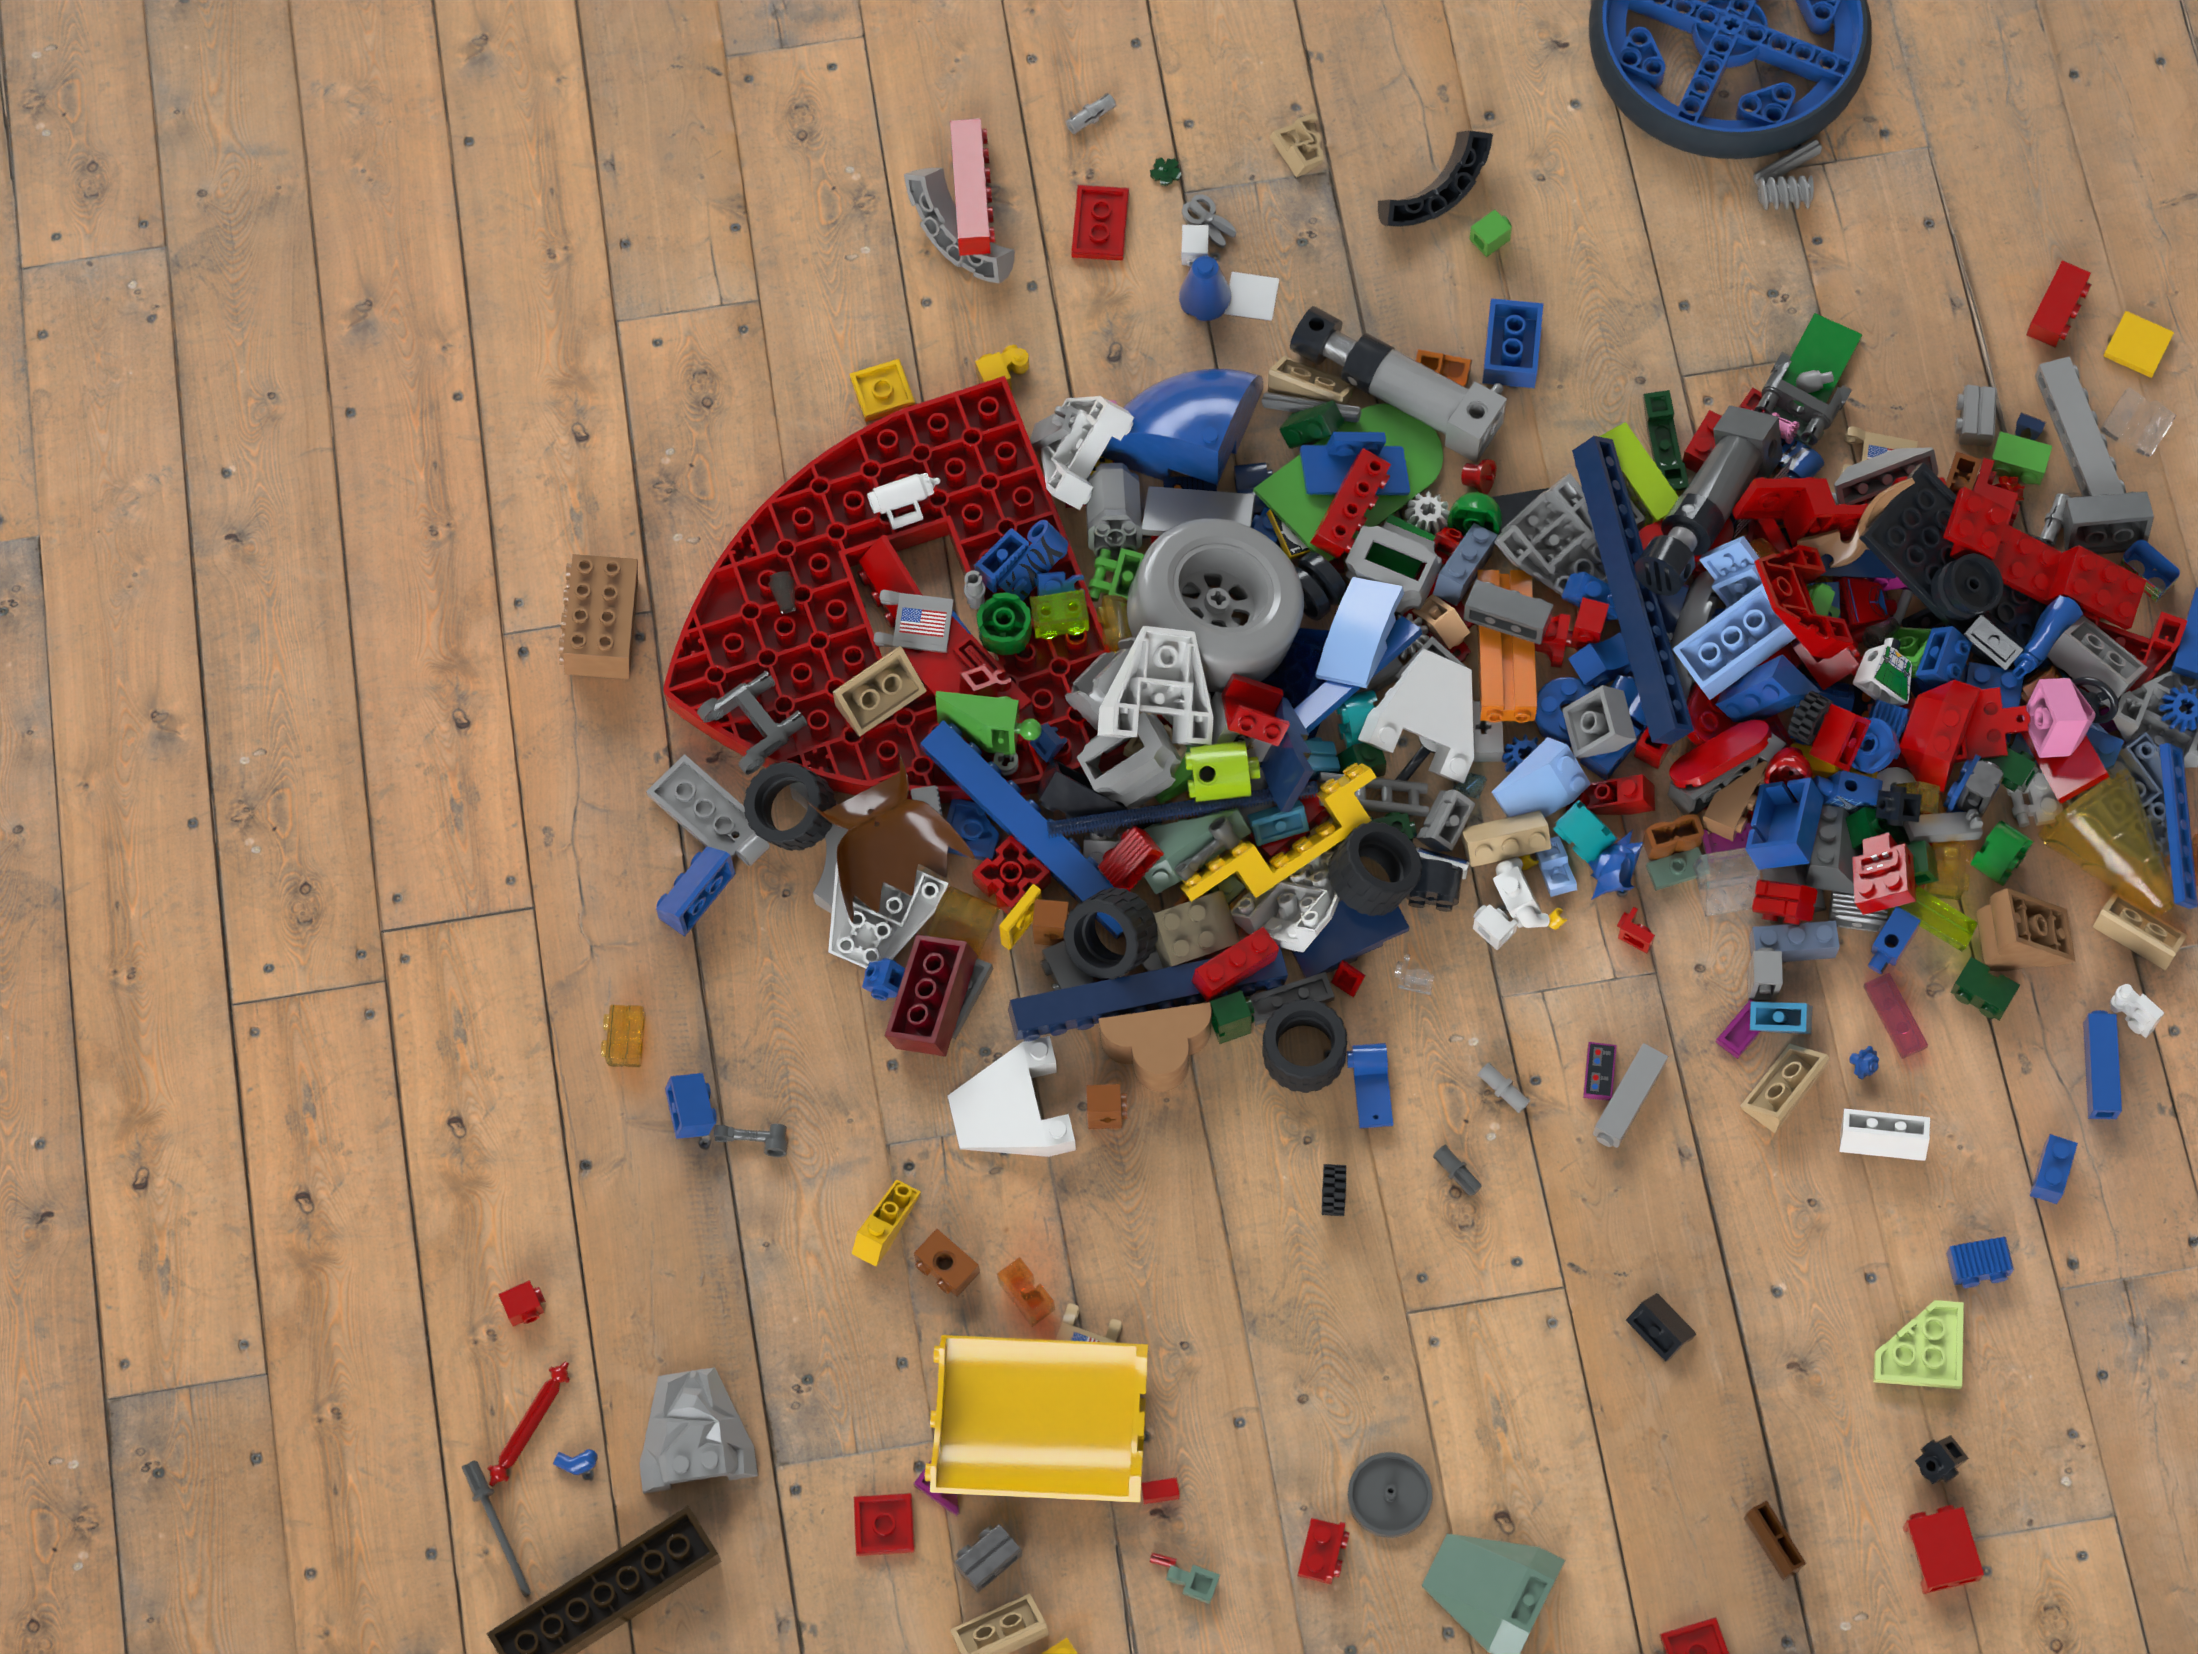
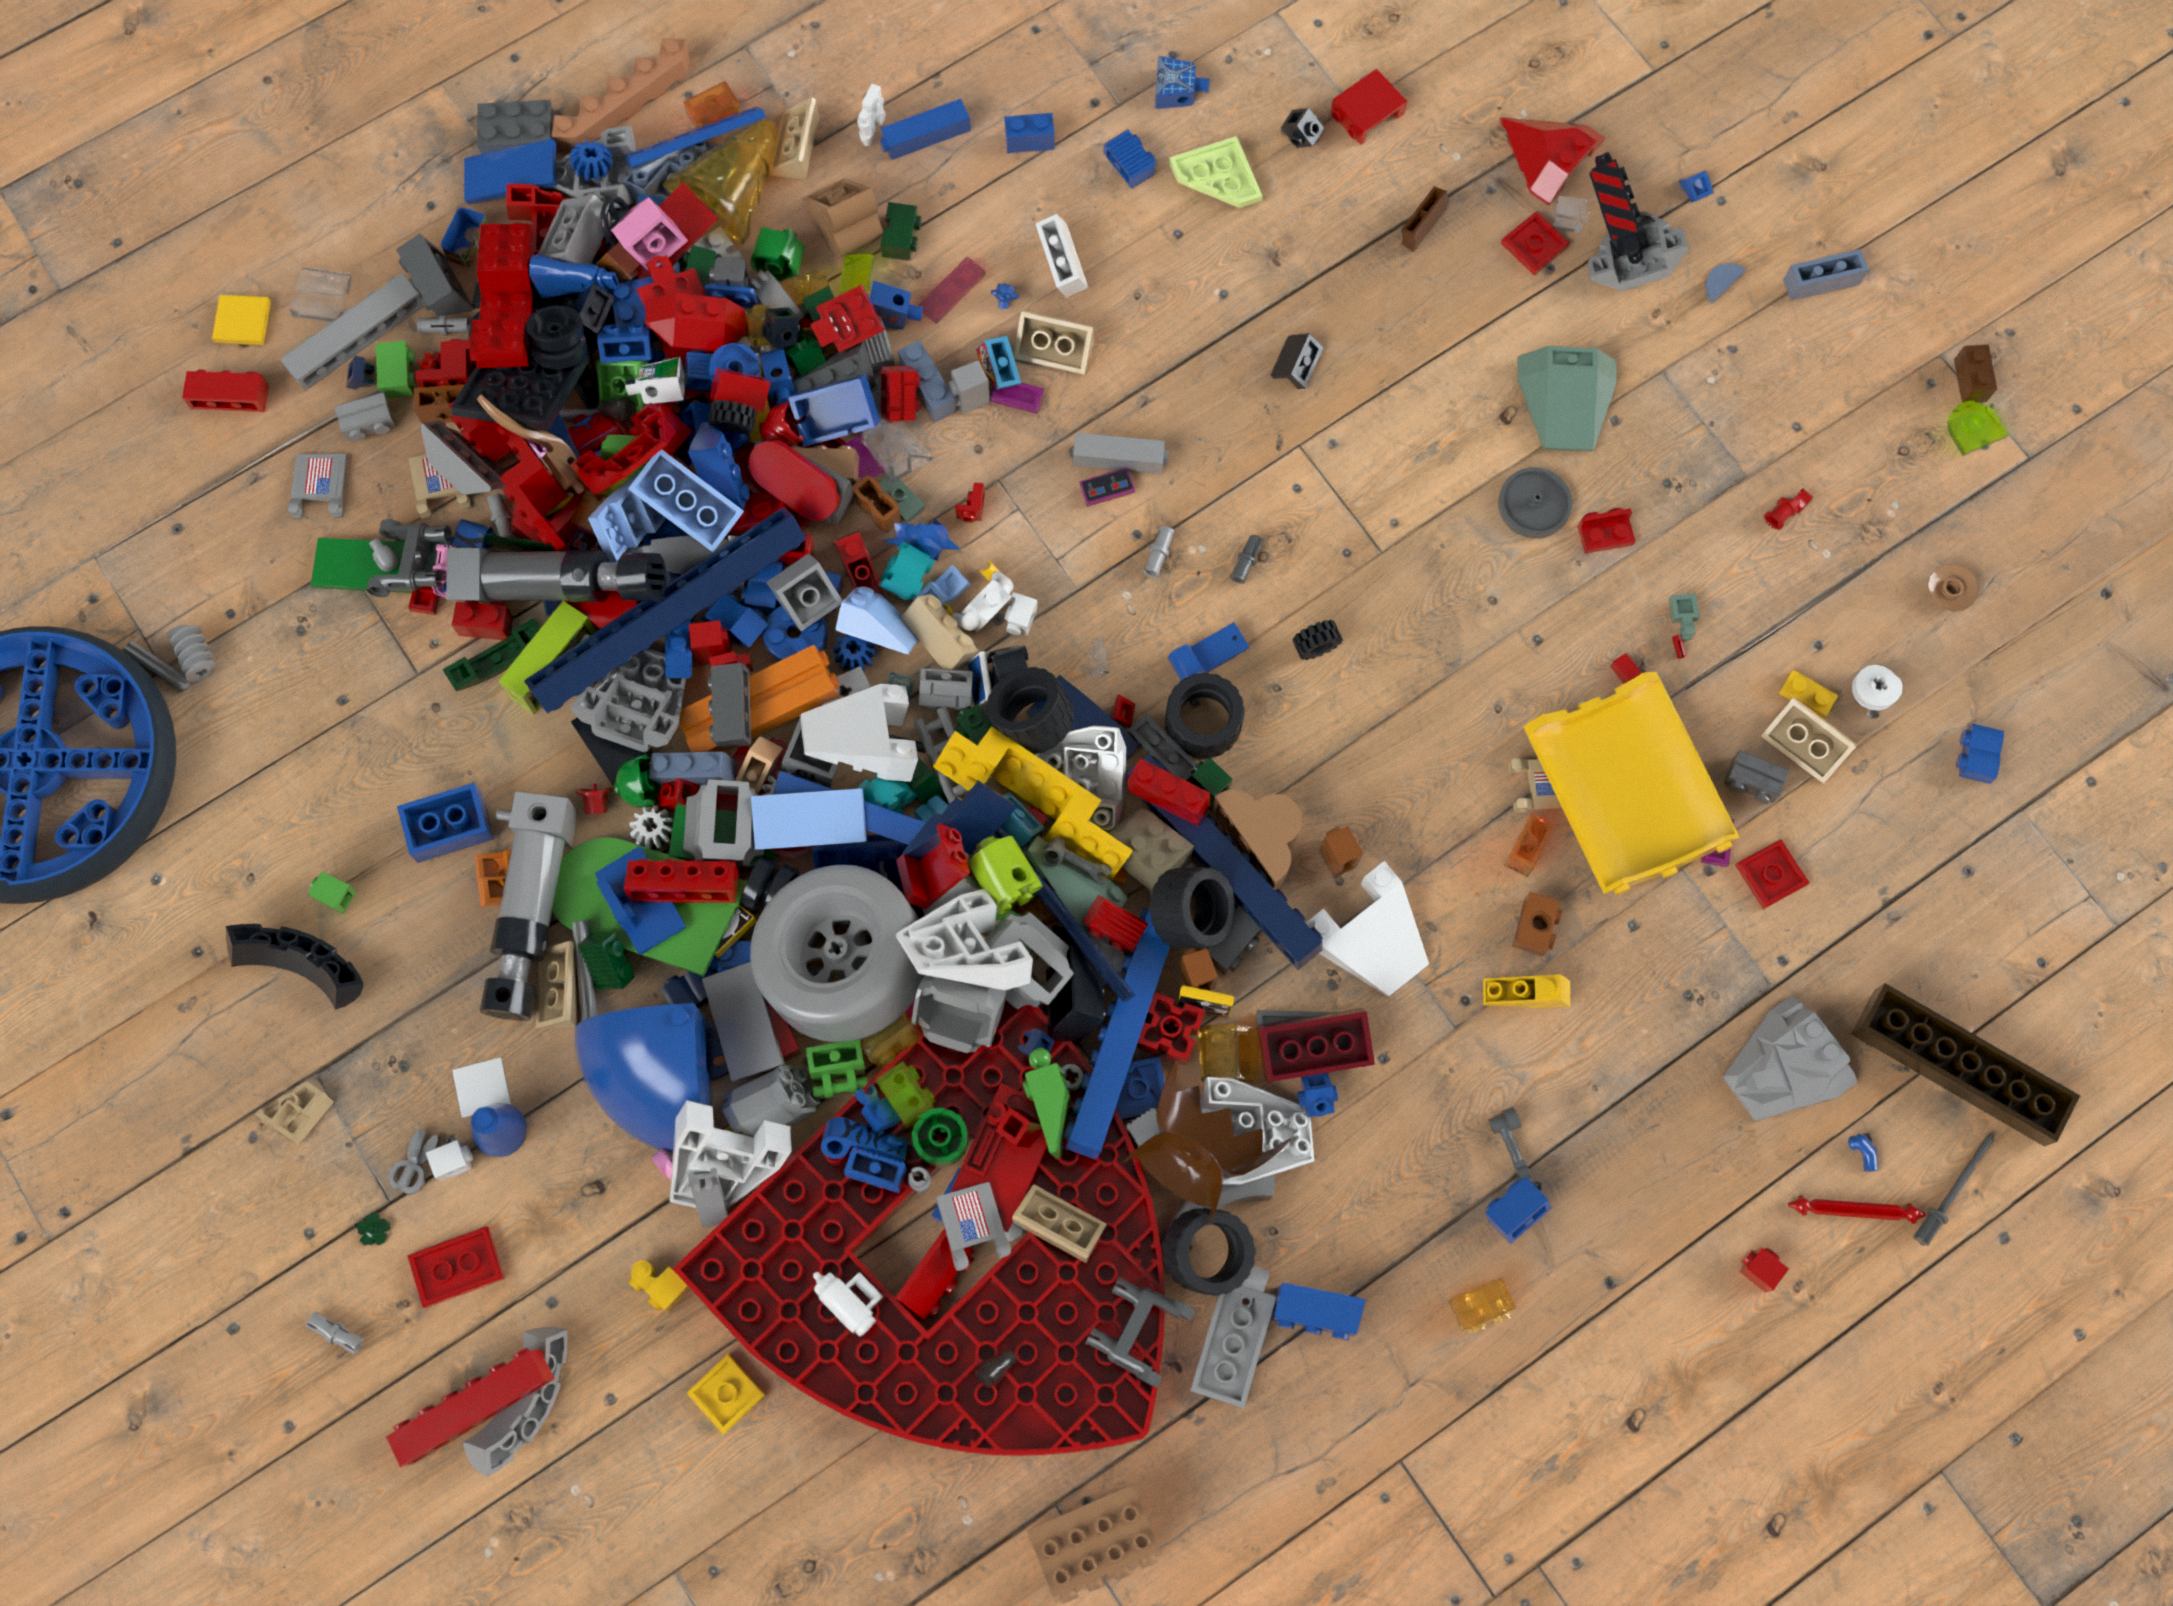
camera: 120 degrees left, 5 degrees up
(1926, 356) = (318, 479): none -> light grey flag
(2056, 1354) = (1177, 83): none -> blue torso

